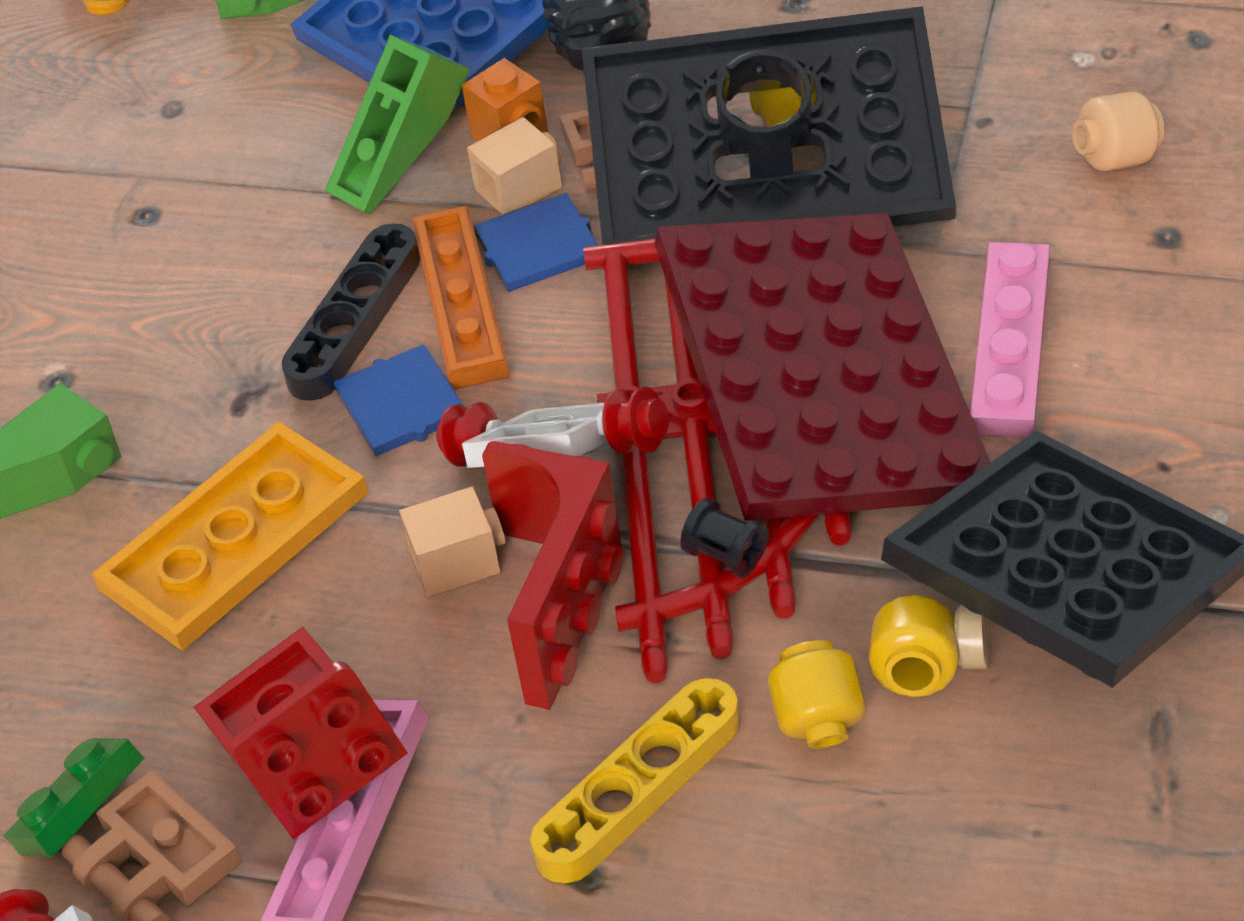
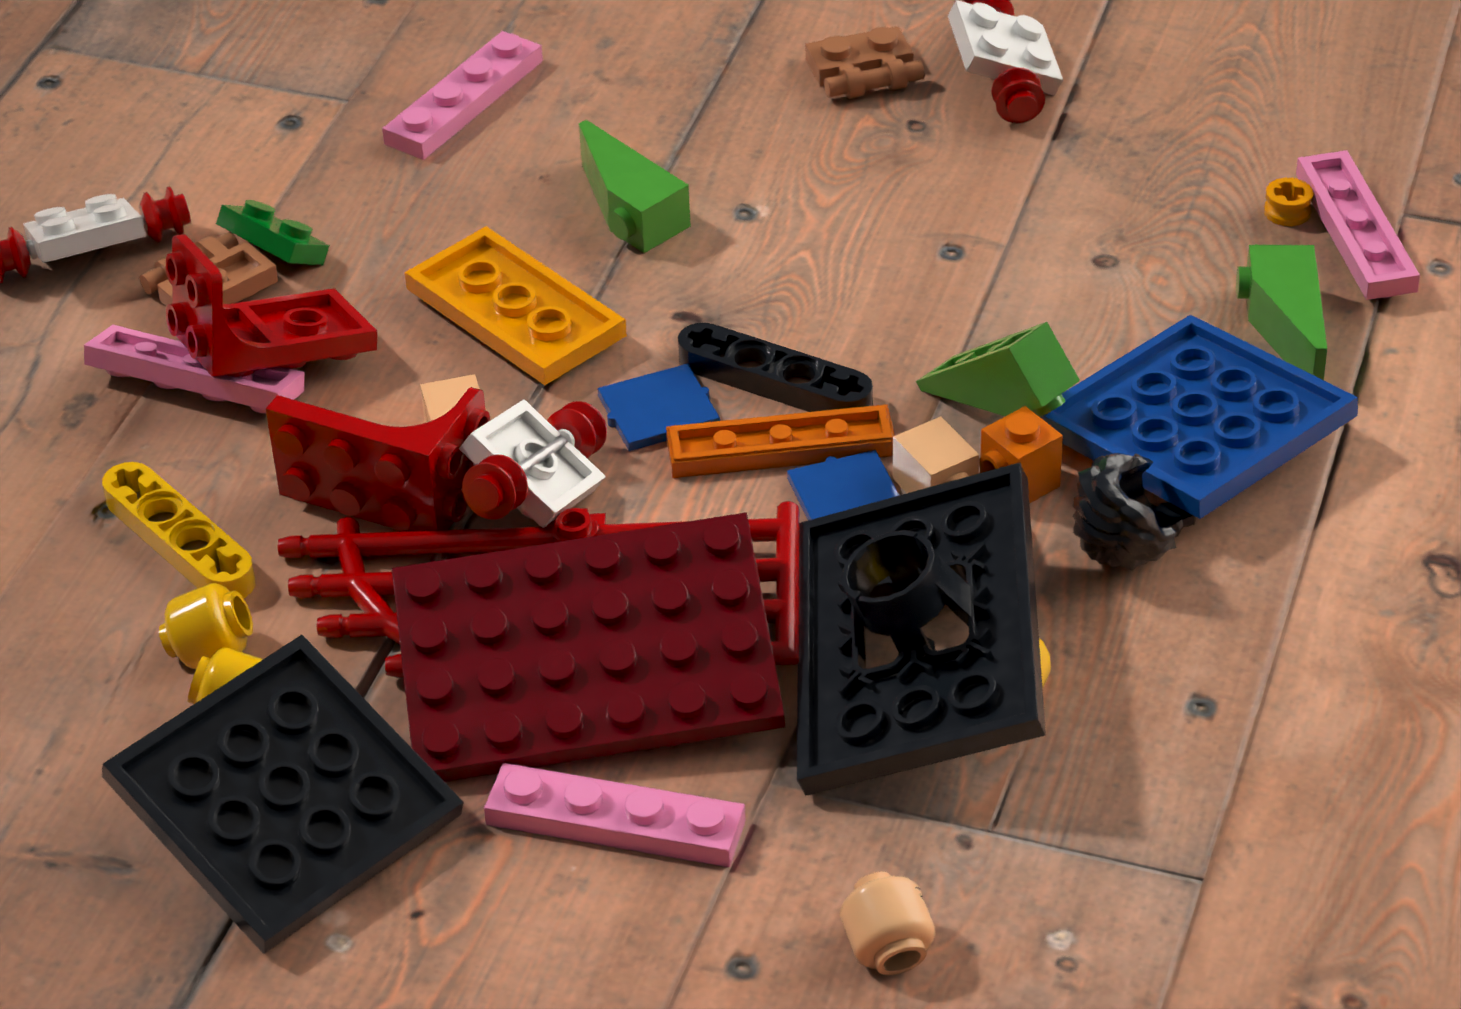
camera: 90 degrees right, 5 degrees down
(724, 537) = (372, 569): black bush -> none

